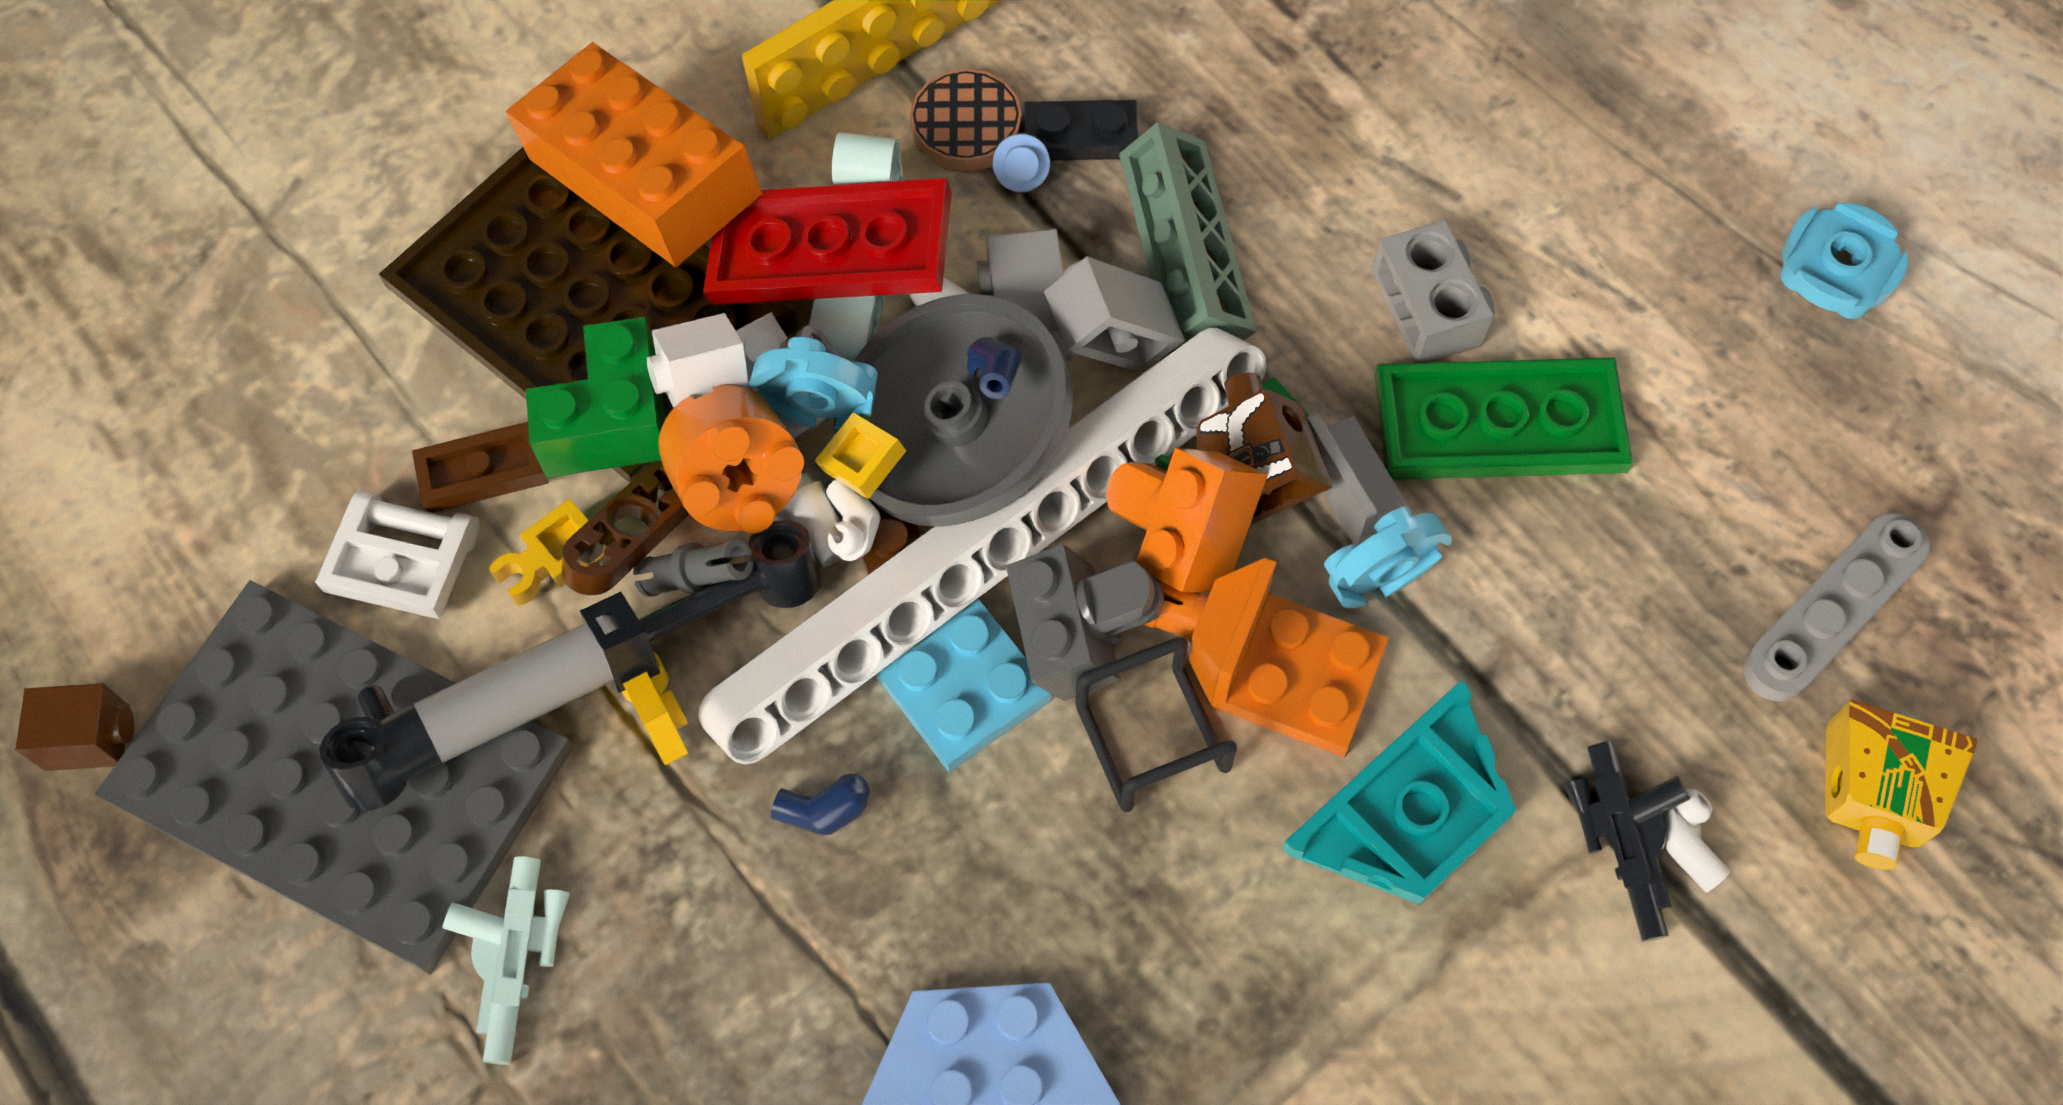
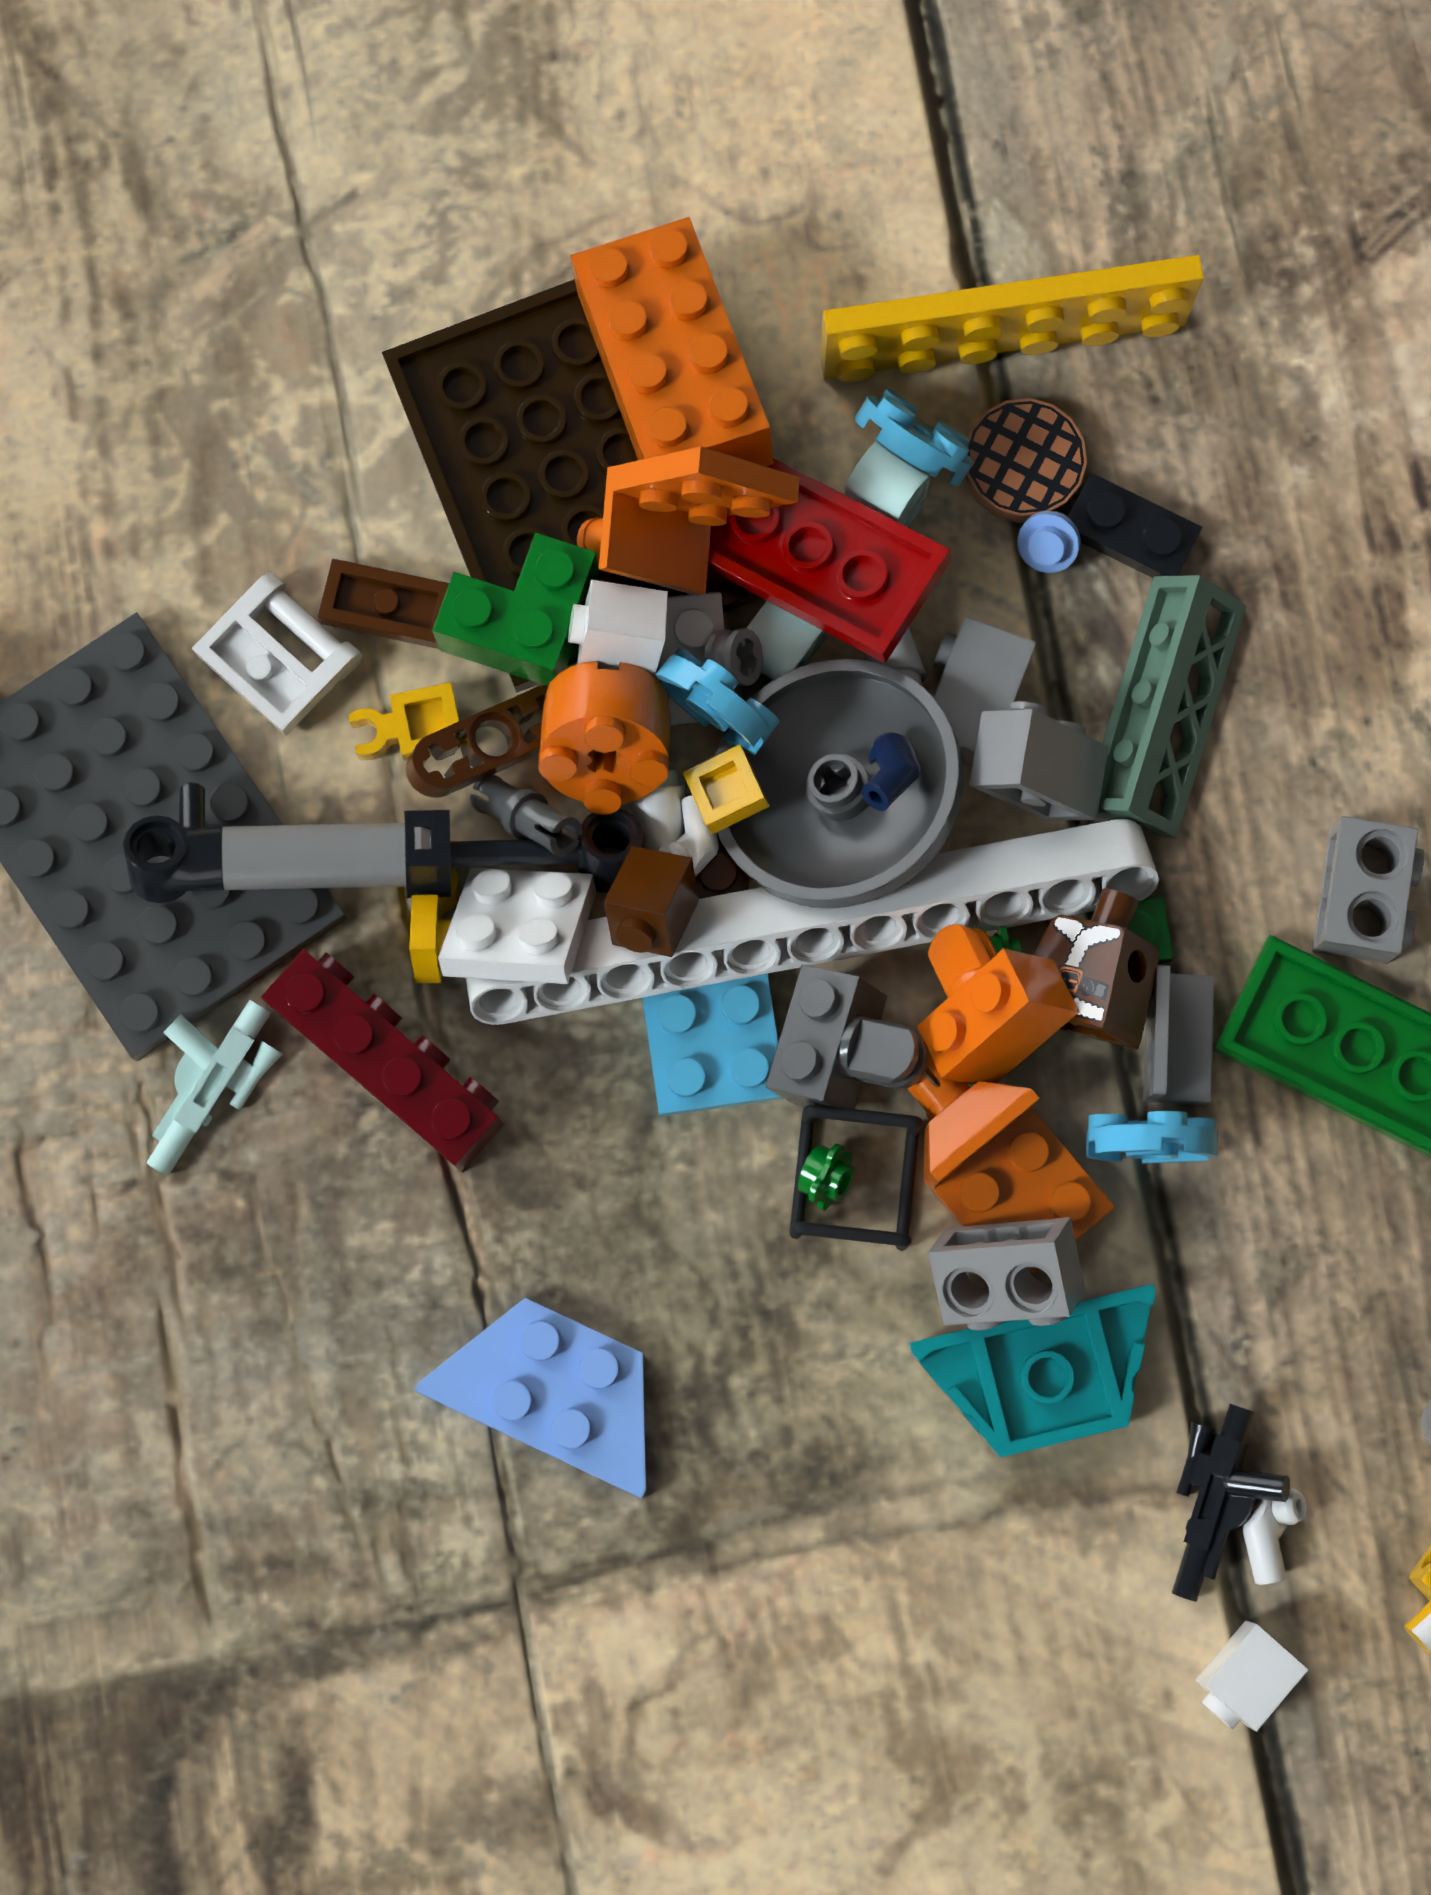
camera: 30 degrees right, 15 degrees up
(668, 843) = (382, 1060): none -> dark red brick
(690, 230) = (664, 511): none -> orange plate
(733, 661) = (518, 925): none -> white plate
(827, 810) = (535, 1098): dark blue arm -> none
(844, 574) = (651, 901): none -> reddish brown brick
(846, 116) = (915, 440): none -> medium azure plate
(1126, 738) = (826, 1175): none -> green plate
(1323, 717) = (1002, 1259): none -> light grey brick
(1759, 973) = (1249, 1678): none -> white brick

